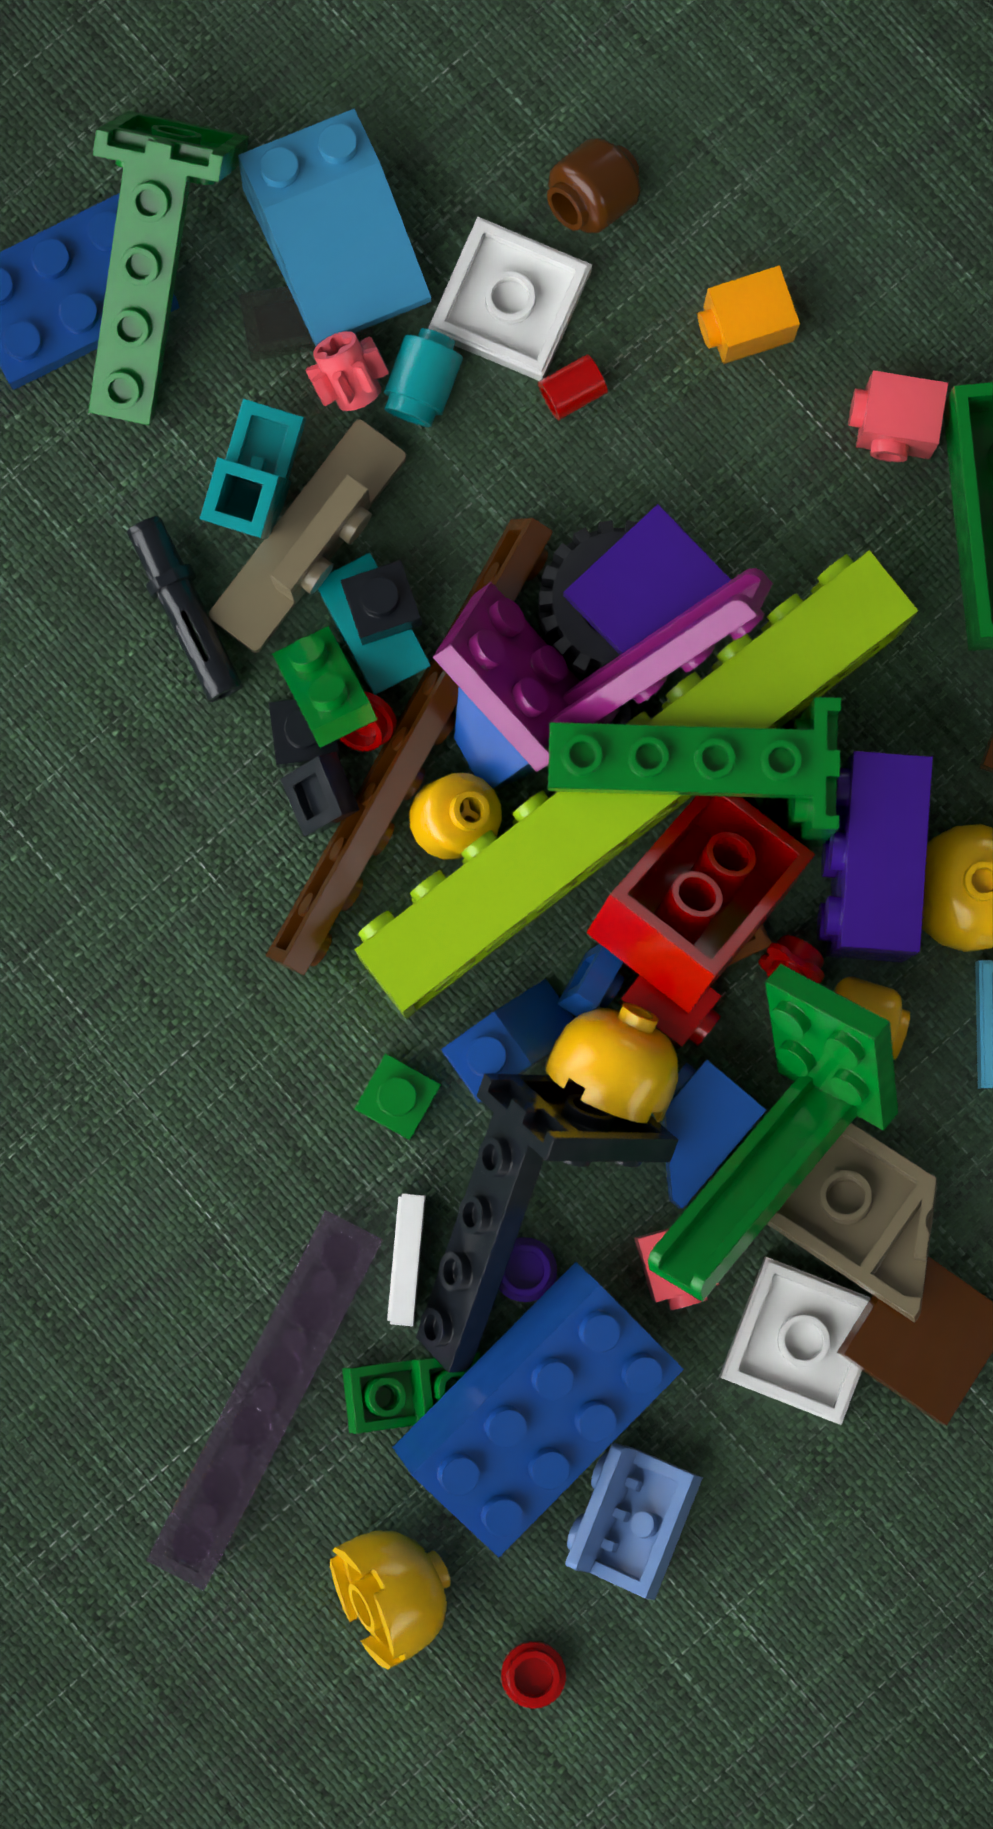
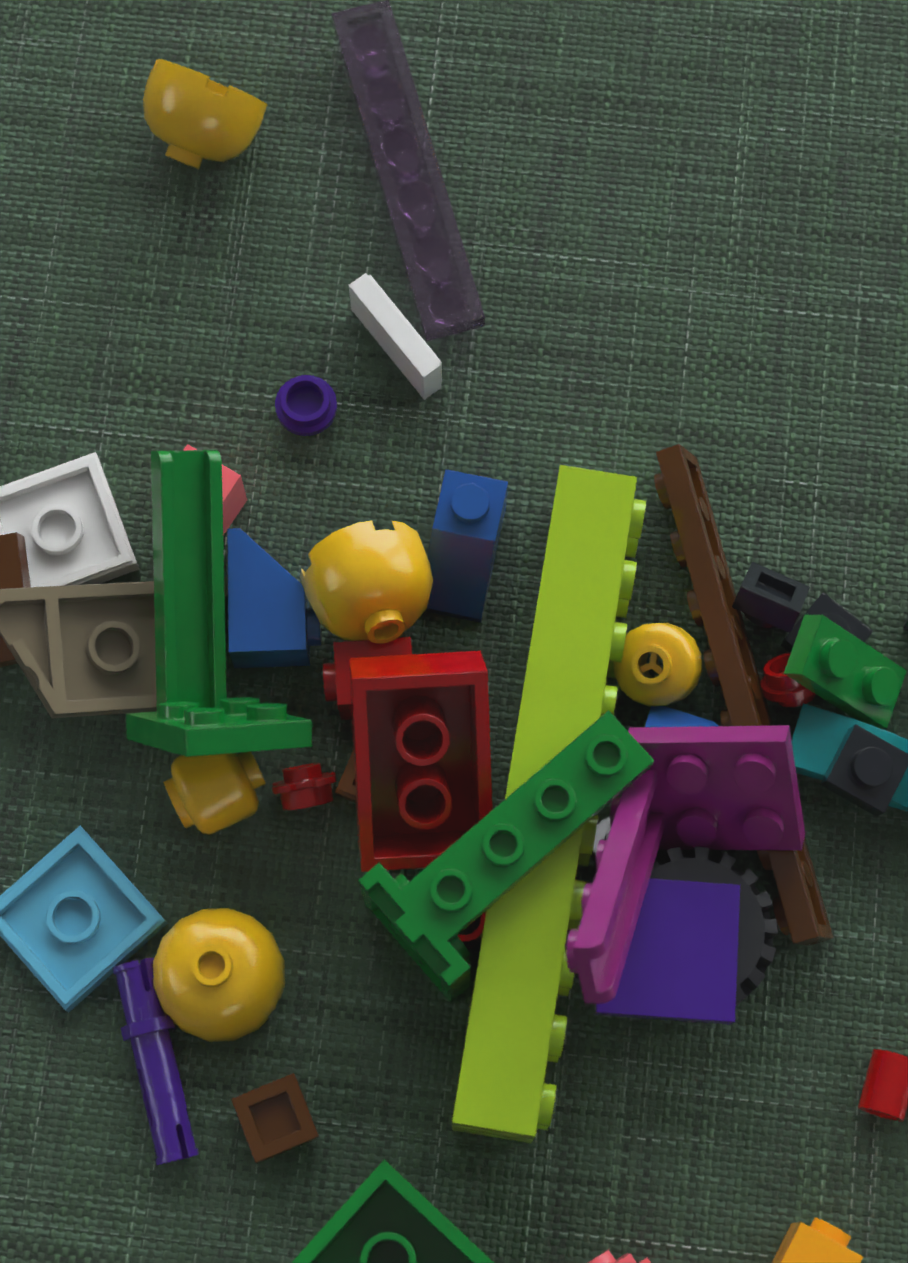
camera: 140 degrees right, 10 degrees down
(394, 1392) = (309, 261): green slope -> none
(397, 1097) = (508, 443): green plate -> none
(528, 1125) = (382, 467): black bracket -> none
(533, 1674) = (54, 153): red plate -> none
(536, 1409) = (208, 308): blue brick -> none
(593, 982) = (441, 631): blue plate -> none
(632, 1520) = (74, 302): medium blue bracket -> none
(877, 858) = (313, 910): dark purple brick -> none

